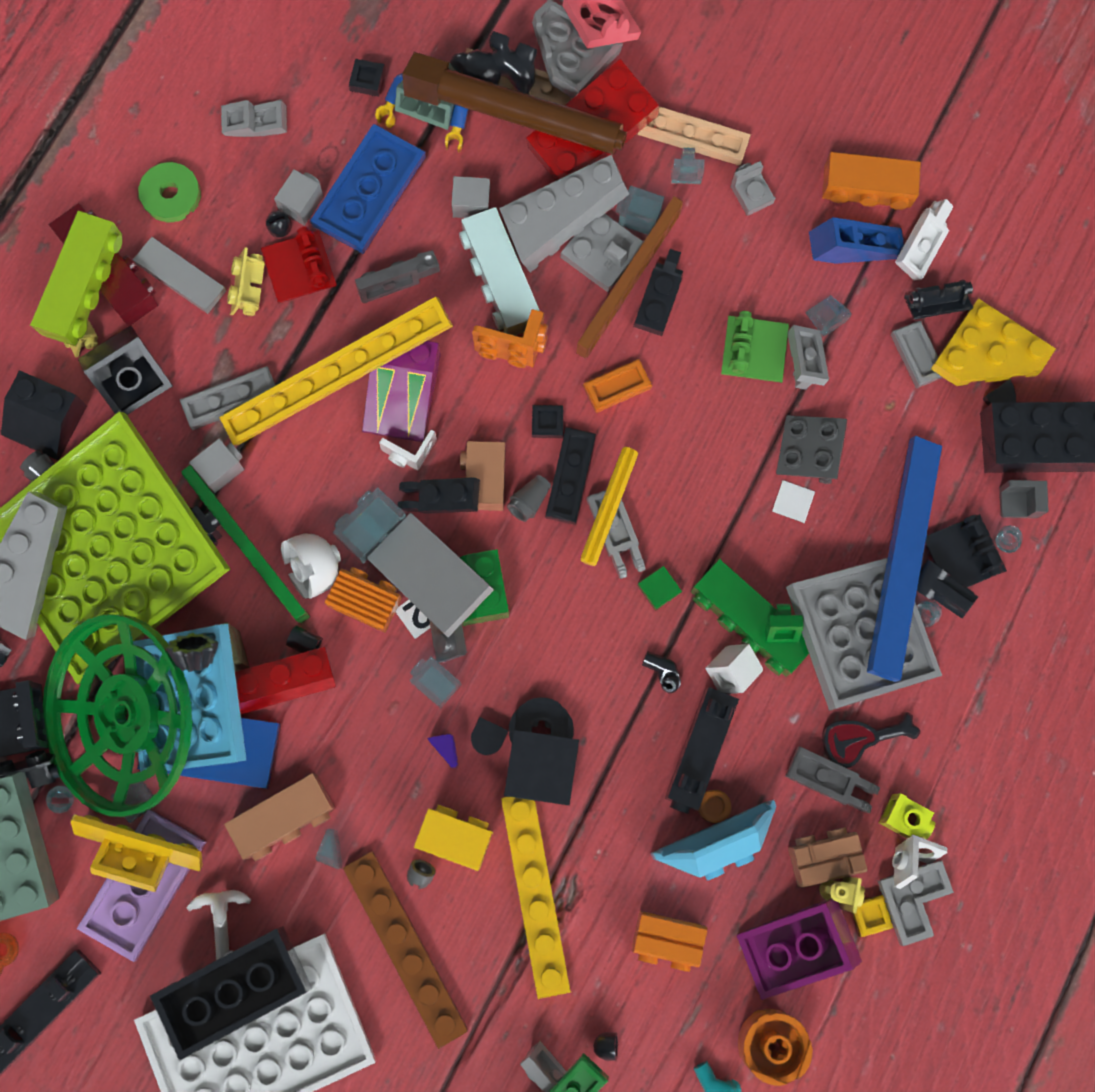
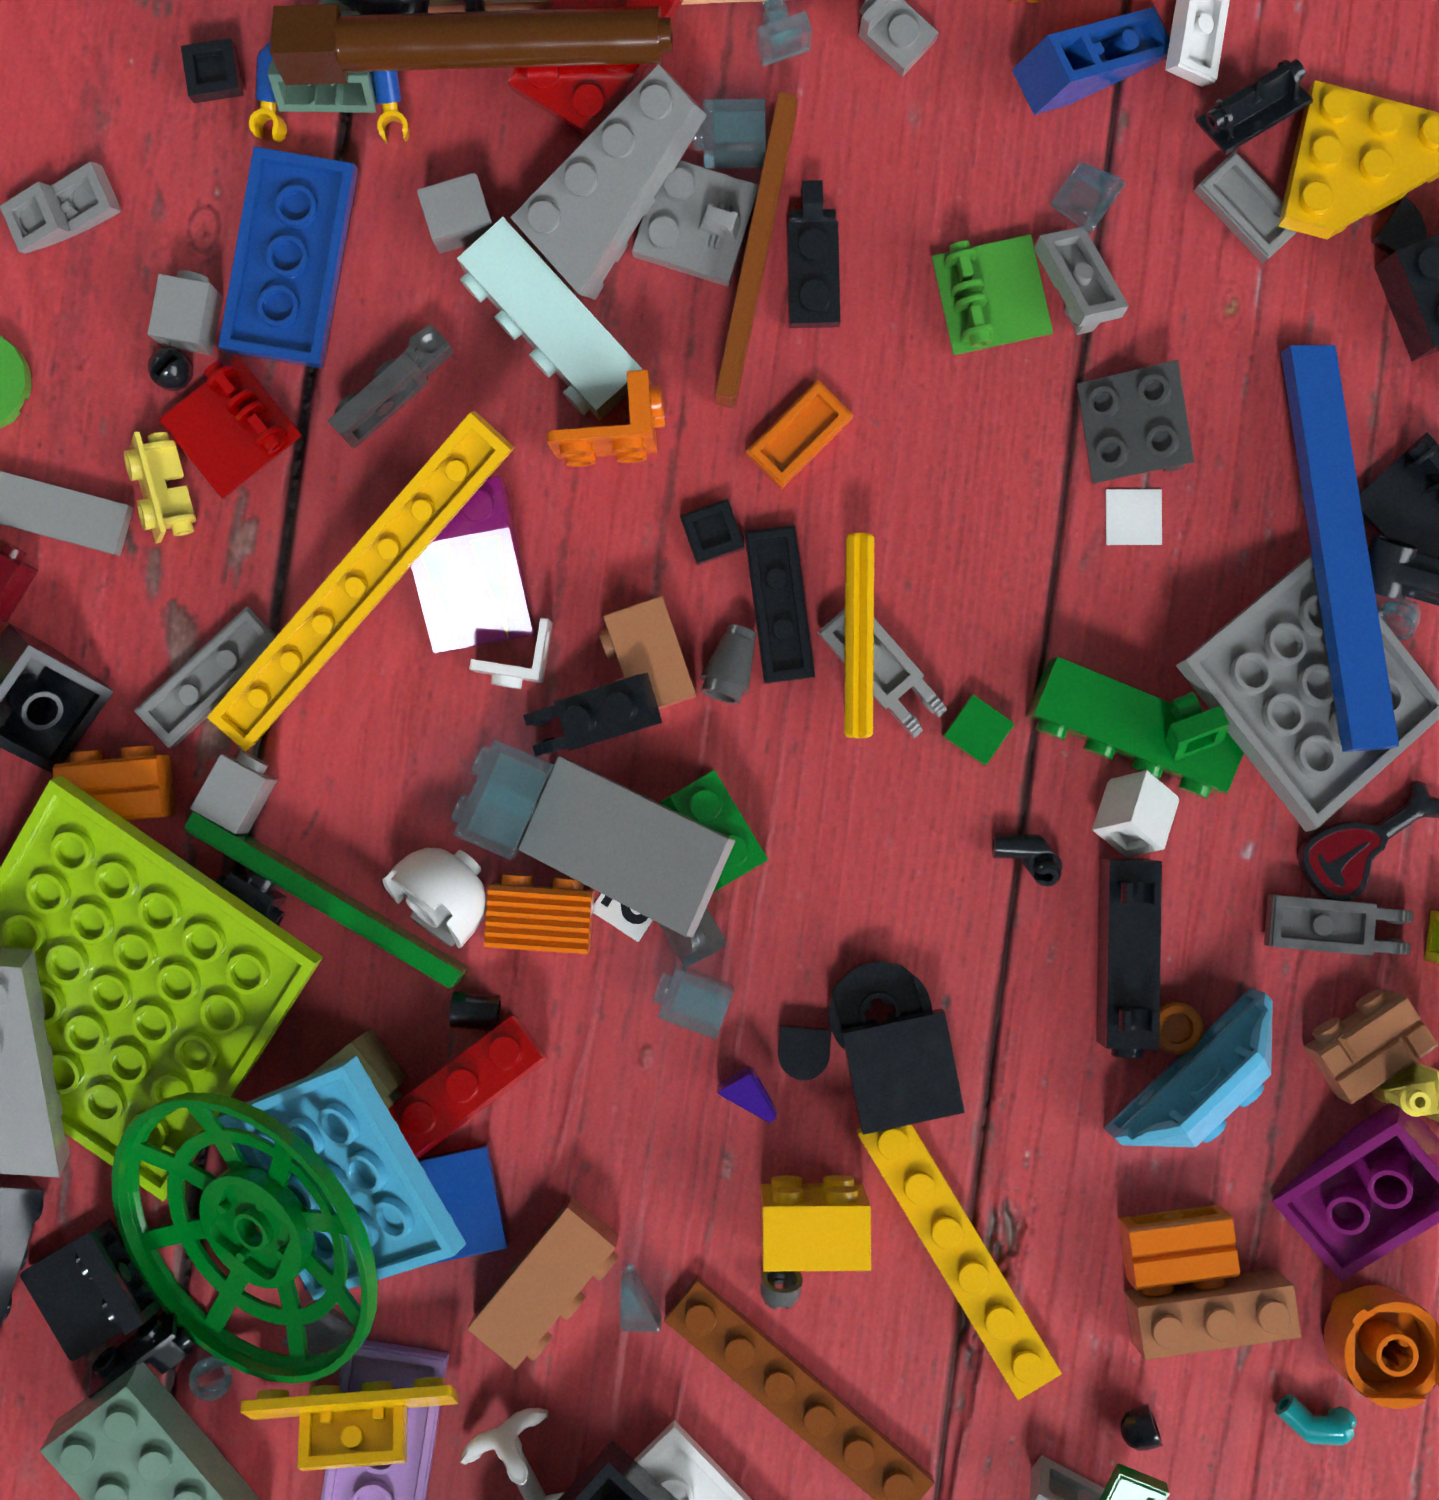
camera: 10 degrees left, 10 degrees up
(164, 438) = (130, 786): none -> orange brick
(193, 651) = (320, 1121): black piece -> none
(675, 988) = (1194, 1320): none -> nougat brick

